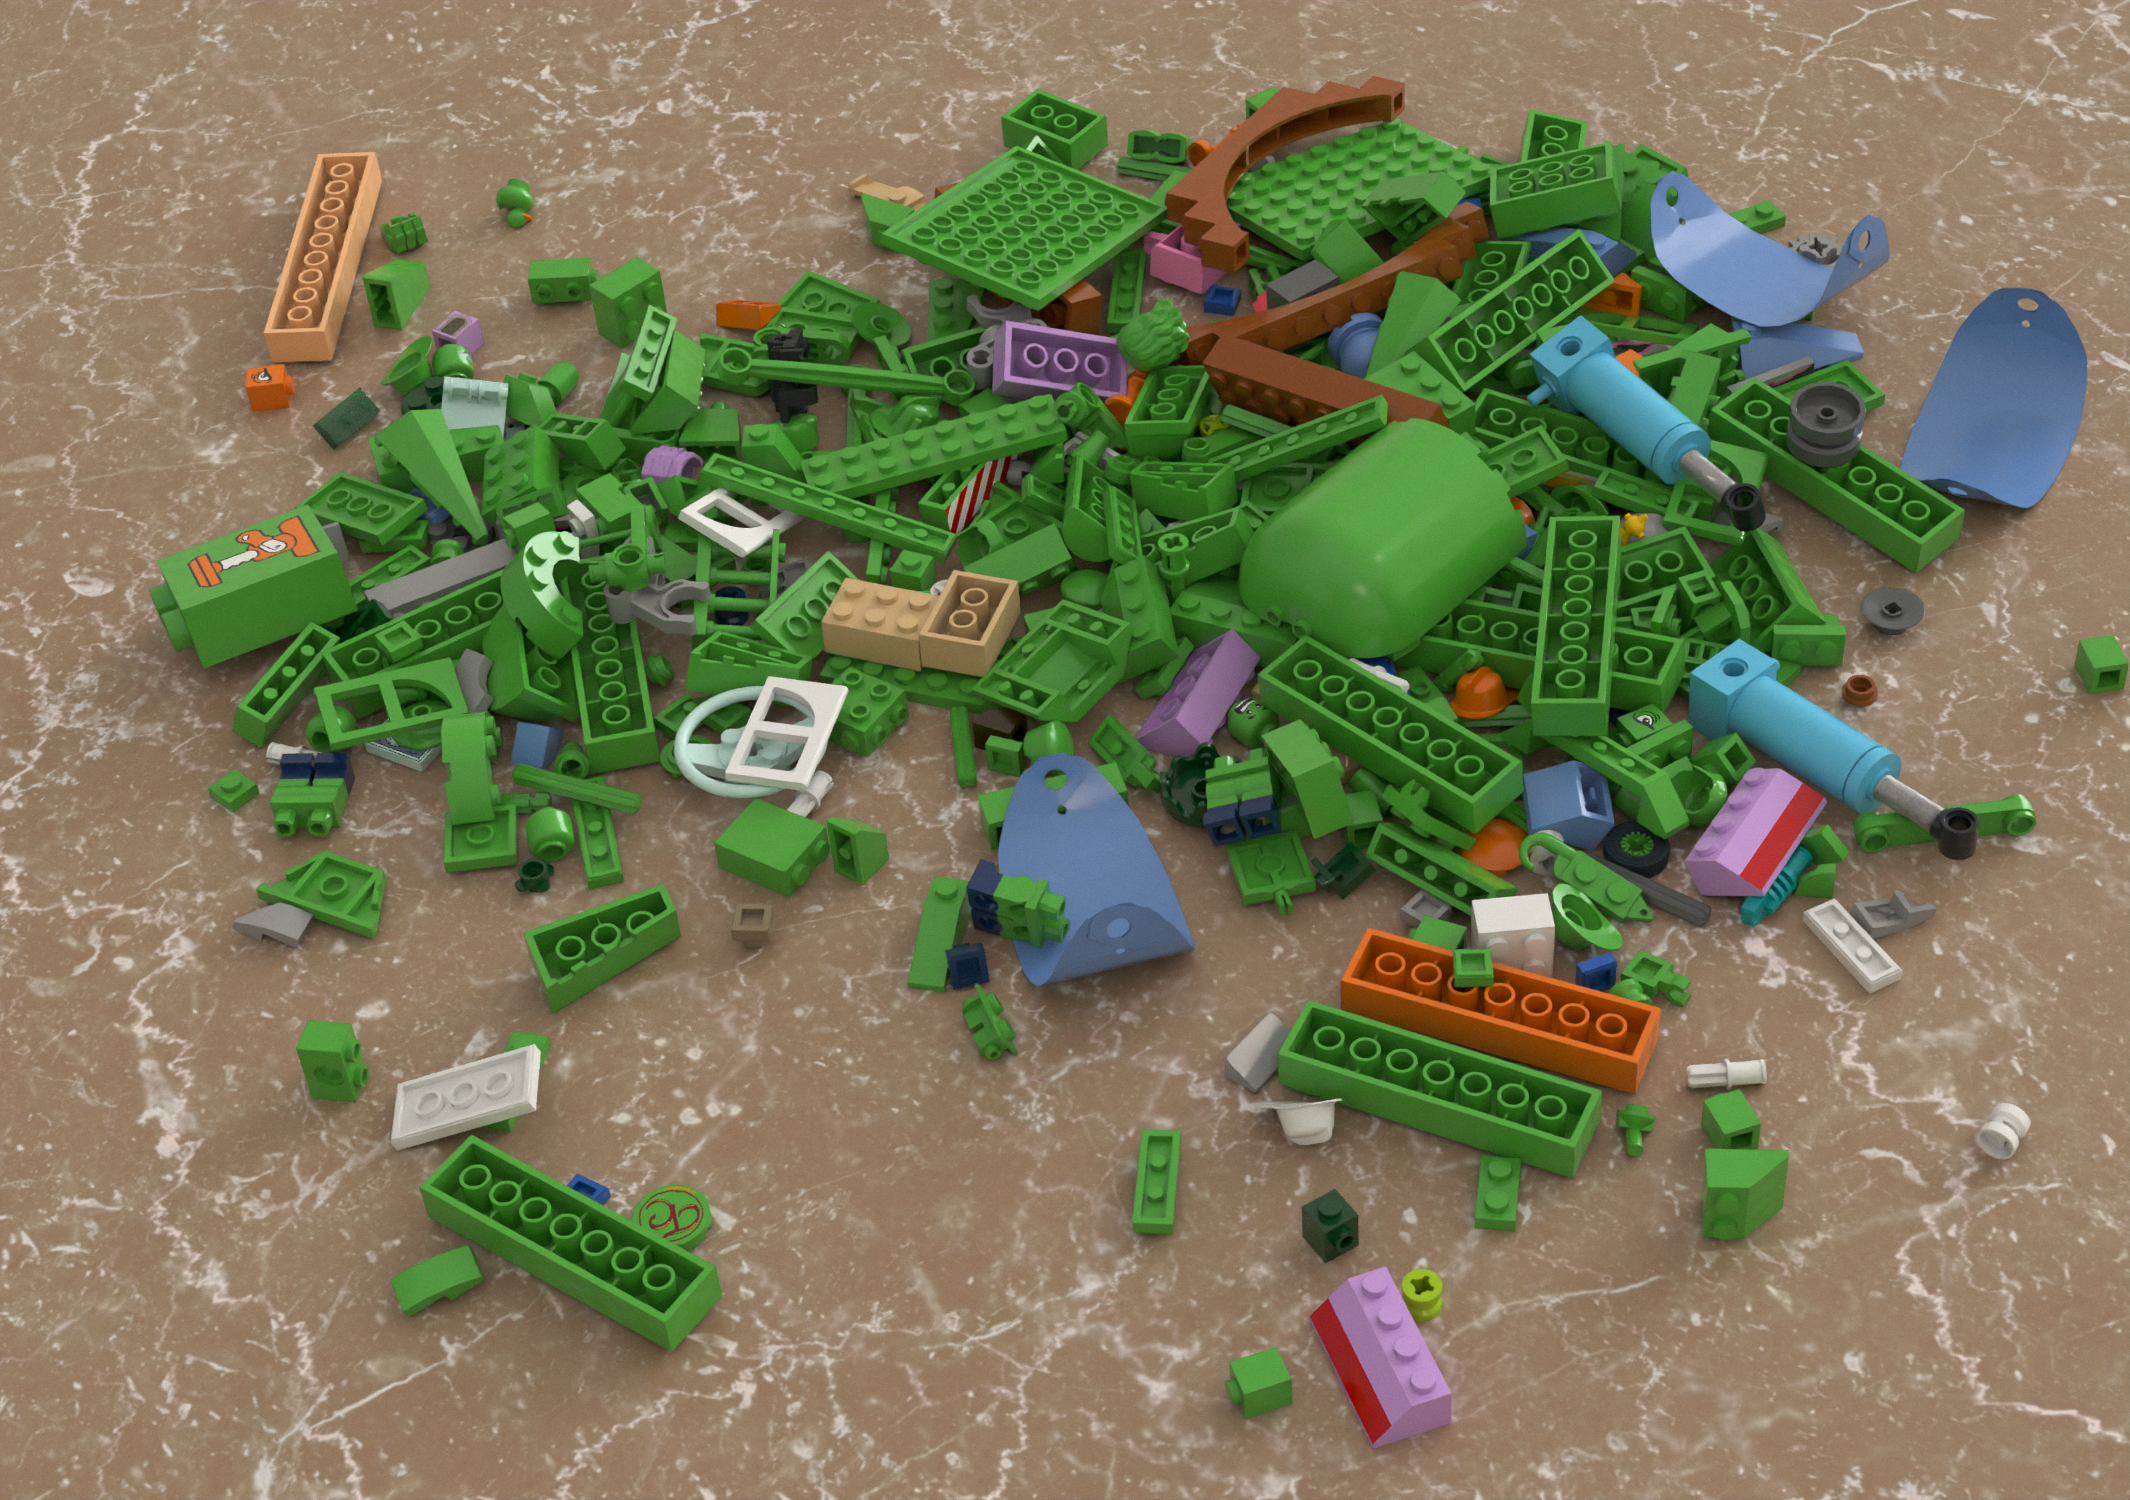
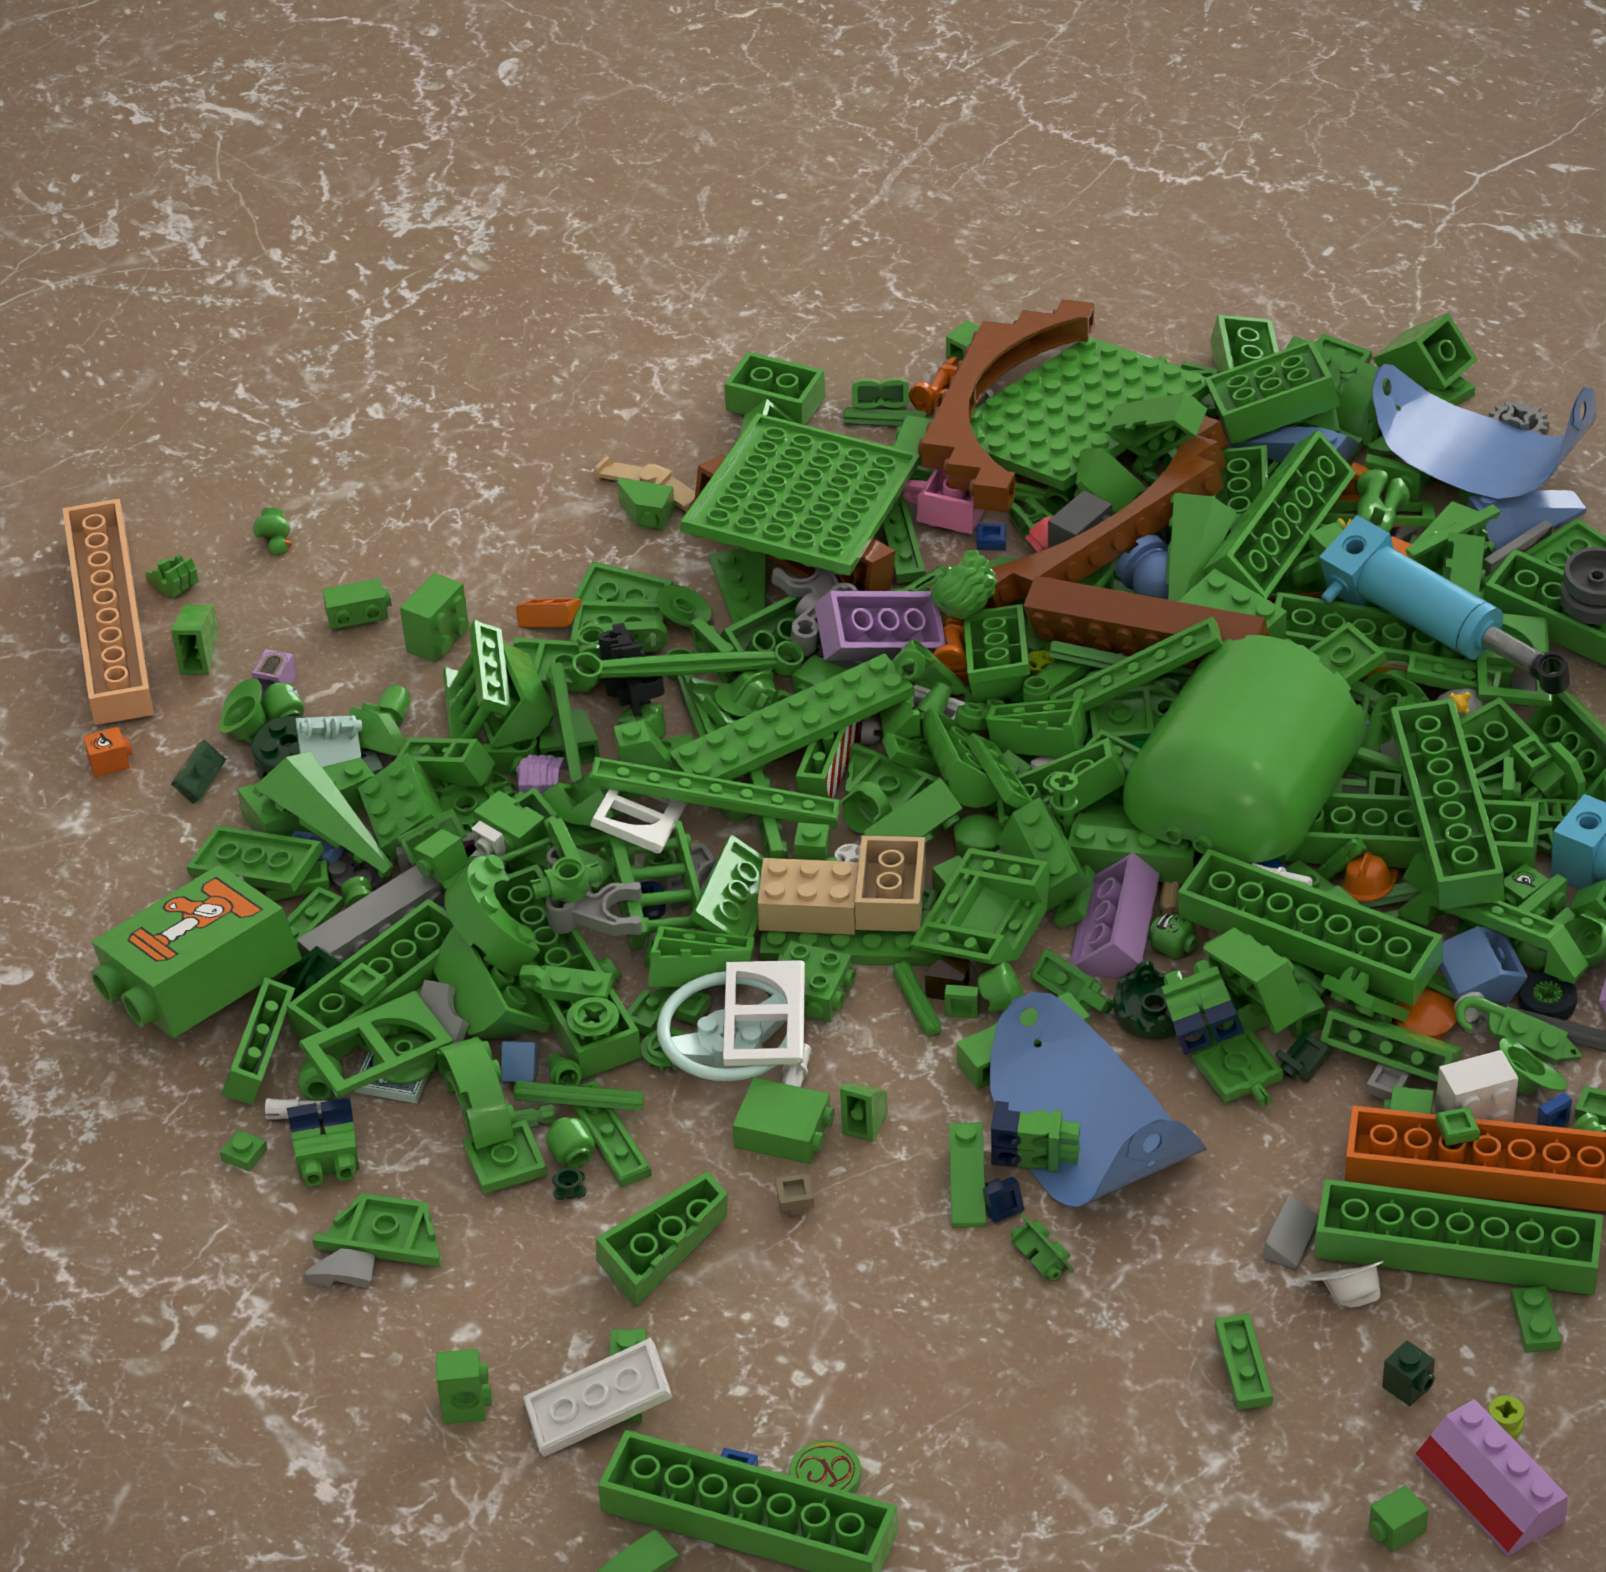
camera: 15 degrees left, 0 degrees up
(601, 673) = (565, 983): none -> bright green hinge
(619, 702) = (593, 1008): none -> bright green gear
(704, 397) = (560, 701): none -> bright green tile
(1617, 321) = (1371, 507): none -> bright green piece
(1743, 176) = (1429, 353): none -> bright green slope

